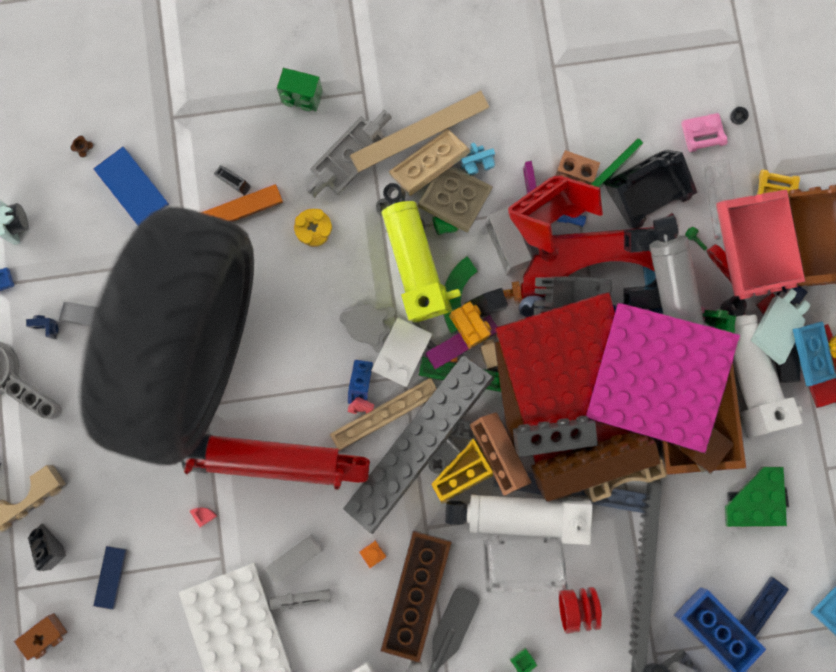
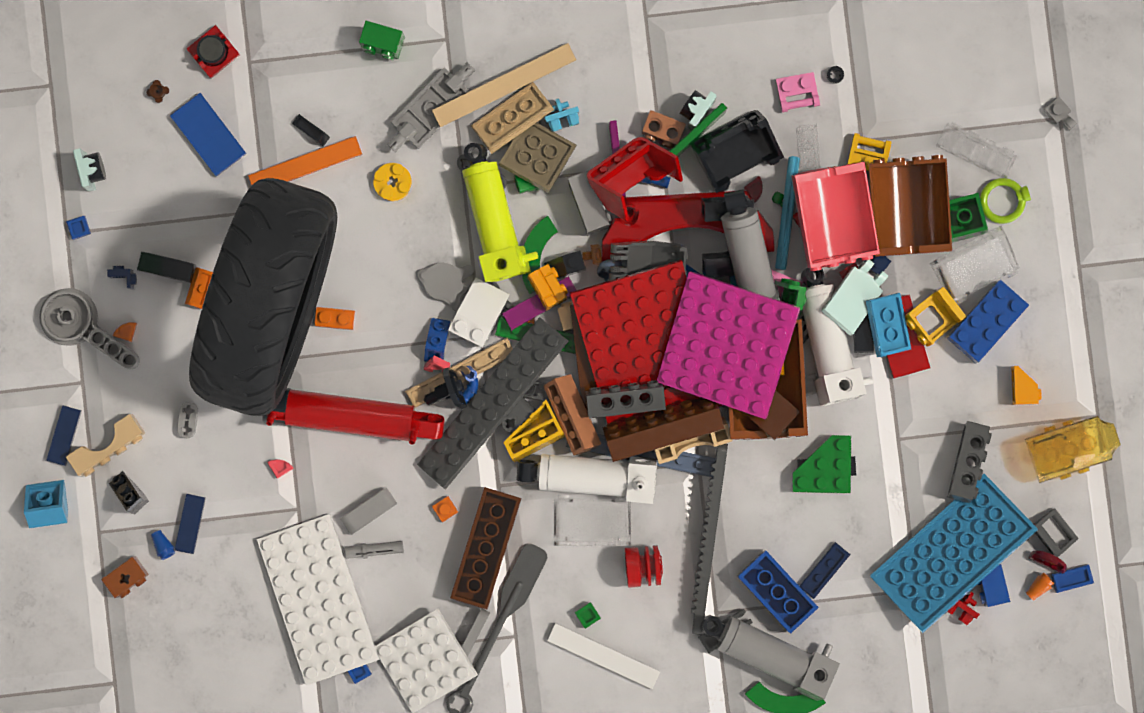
camera: 10 degrees right, 5 degrees up
(47, 381) = (126, 331): none -> orange tile
(80, 601) = (162, 545): none -> blue cone
(103, 470) = (183, 418): none -> light grey beam
(136, 105) = (212, 50): none -> piece
(257, 362) = (334, 318): none -> orange plate
(374, 431) = (450, 389): none -> black piece
(396, 429) = (472, 387): none -> blue piece
(610, 146) = (697, 107): none -> light aqua piece
(703, 243) = (787, 214): none -> medium azure axle

